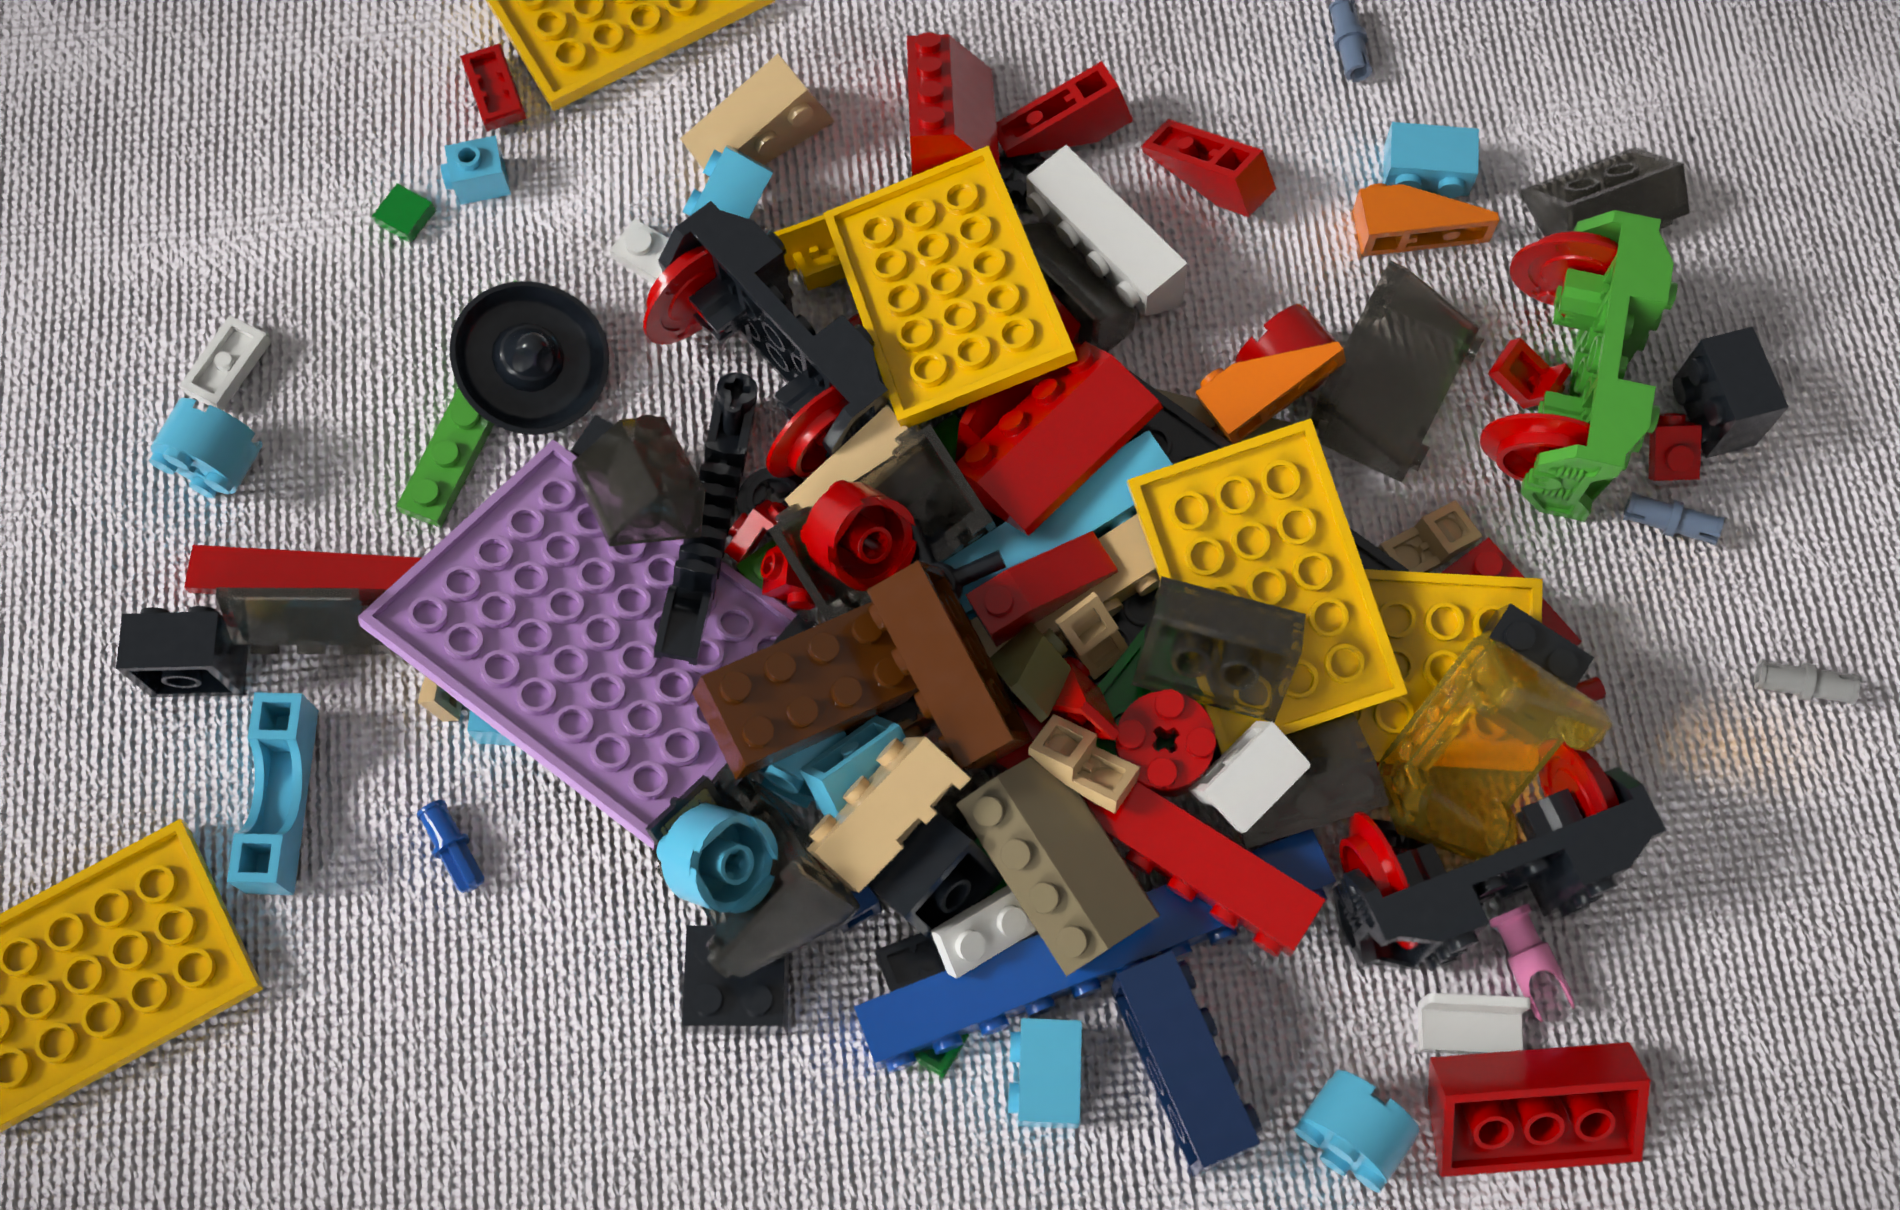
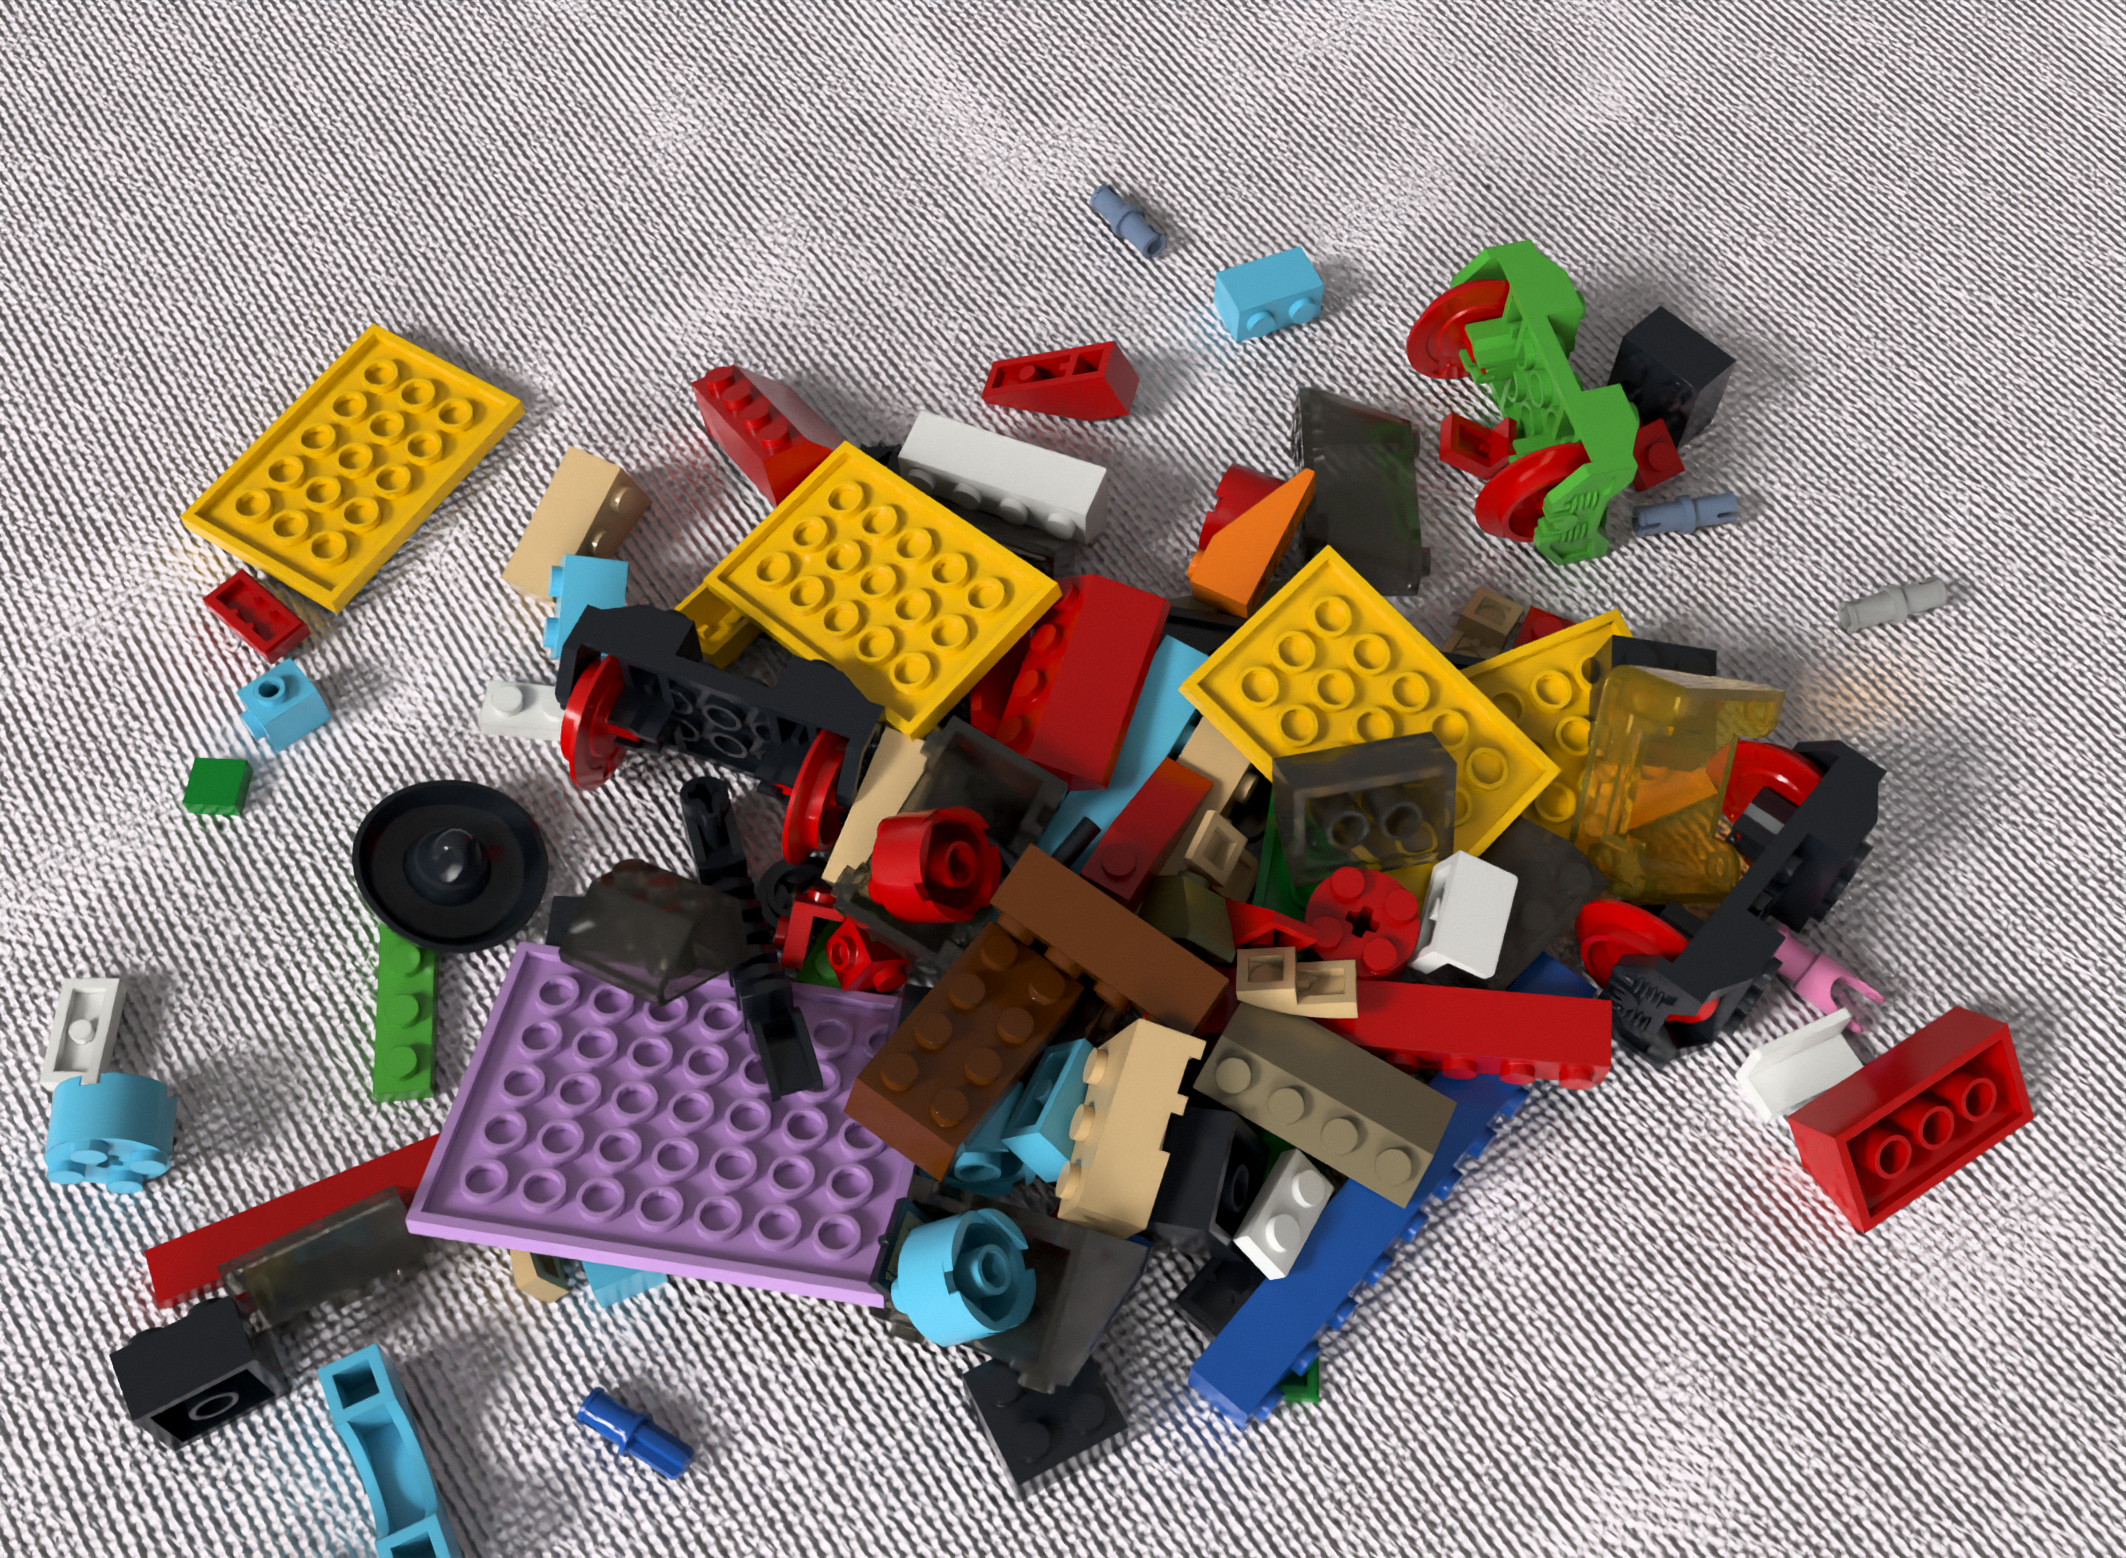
camera: 30 degrees left, 10 degrees down
(1047, 1073) = (1427, 1334): medium azure brick -> none
(1069, 115) = (908, 378): red slope -> none
(1185, 1063) = (1563, 1246): dark blue brick -> none
(1358, 1130) = (1768, 1221): medium azure brick -> none
(1414, 219) = (1288, 352): orange slope -> none
(1623, 182) = (1440, 253): clear smoke slope -> none

